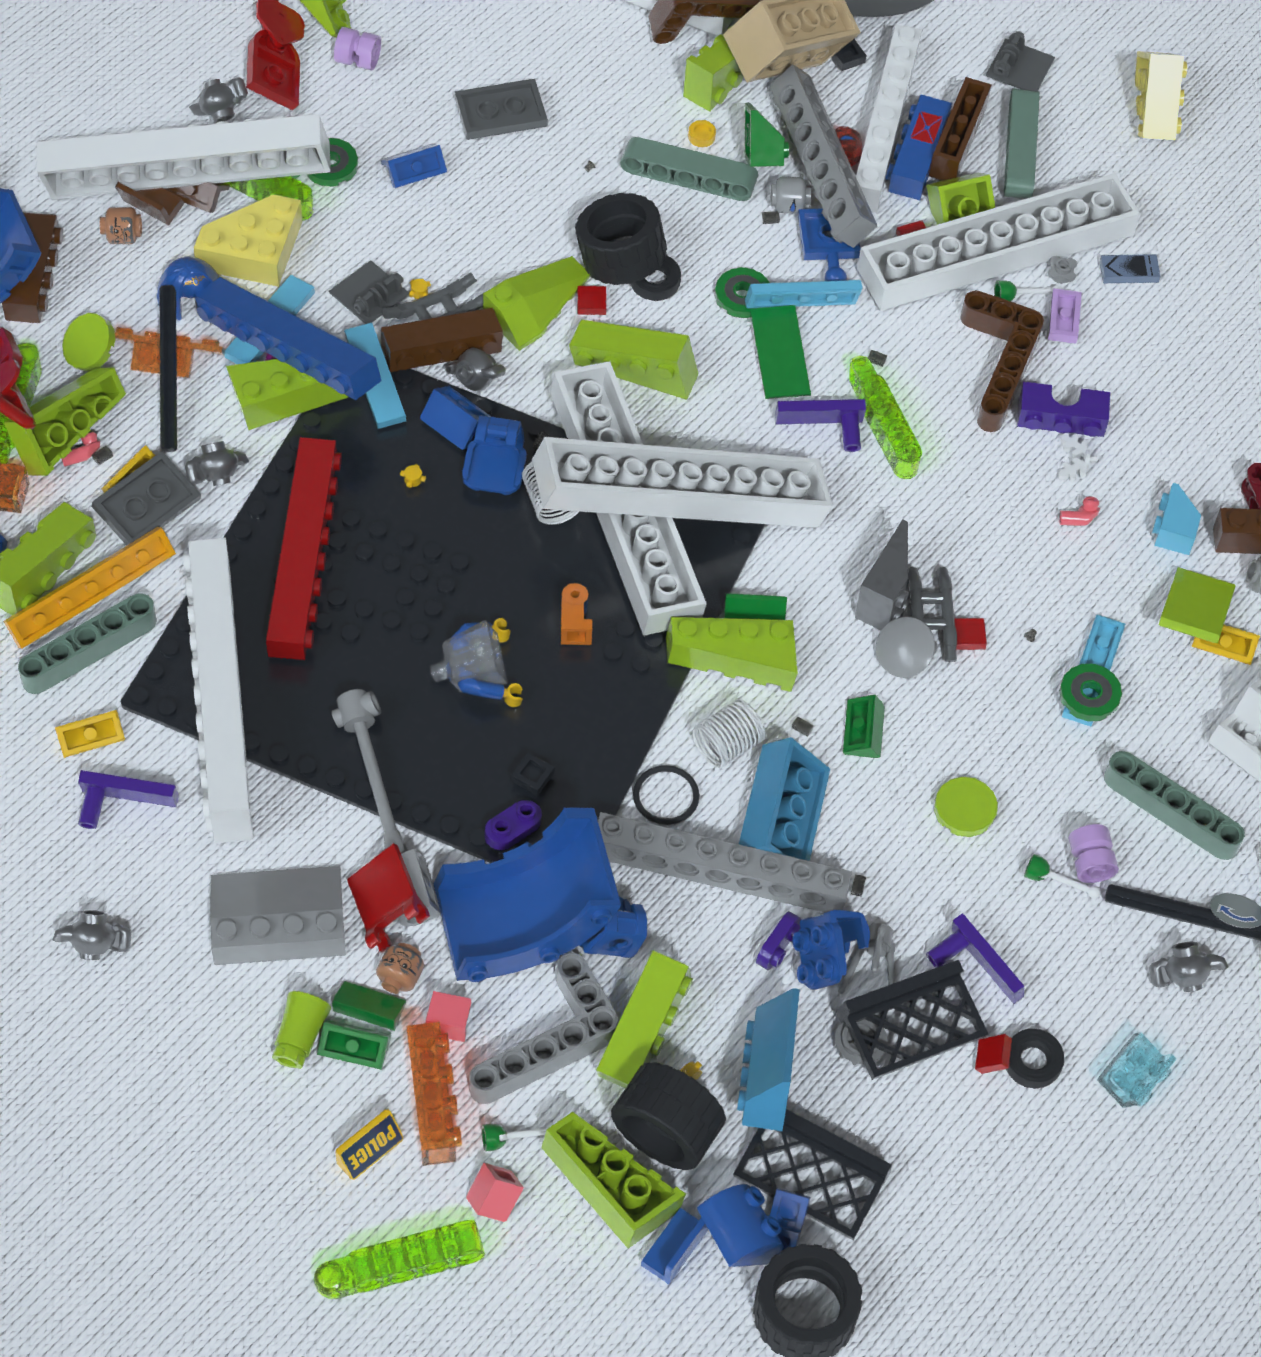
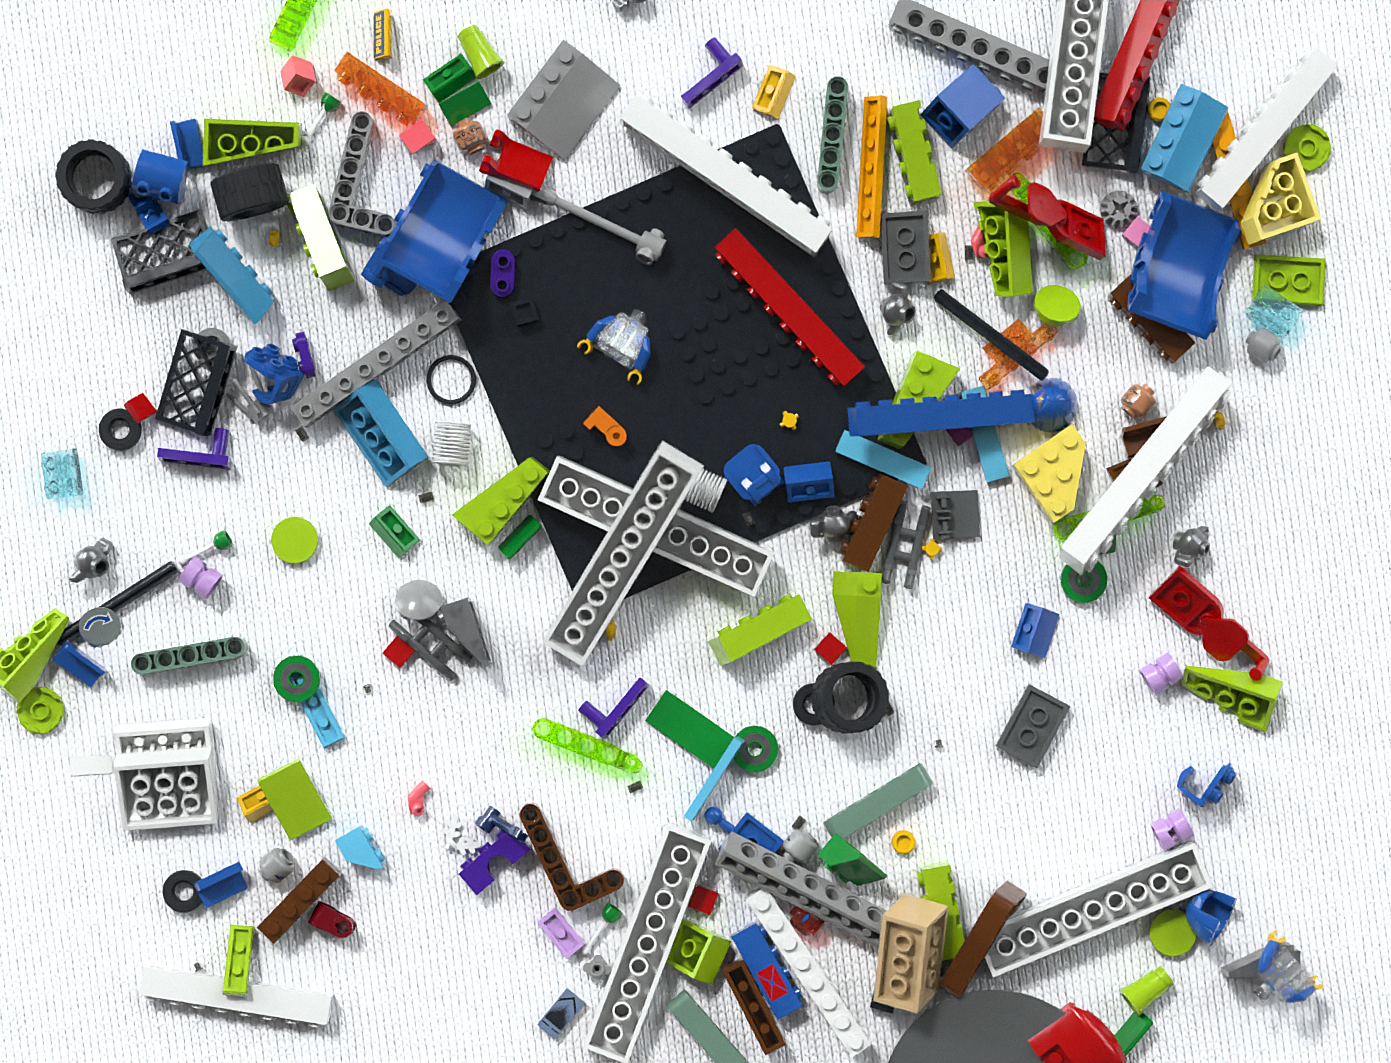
camera: 140 degrees right, 30 degrees up
(1032, 440) = (491, 819): none -> dark blue brick

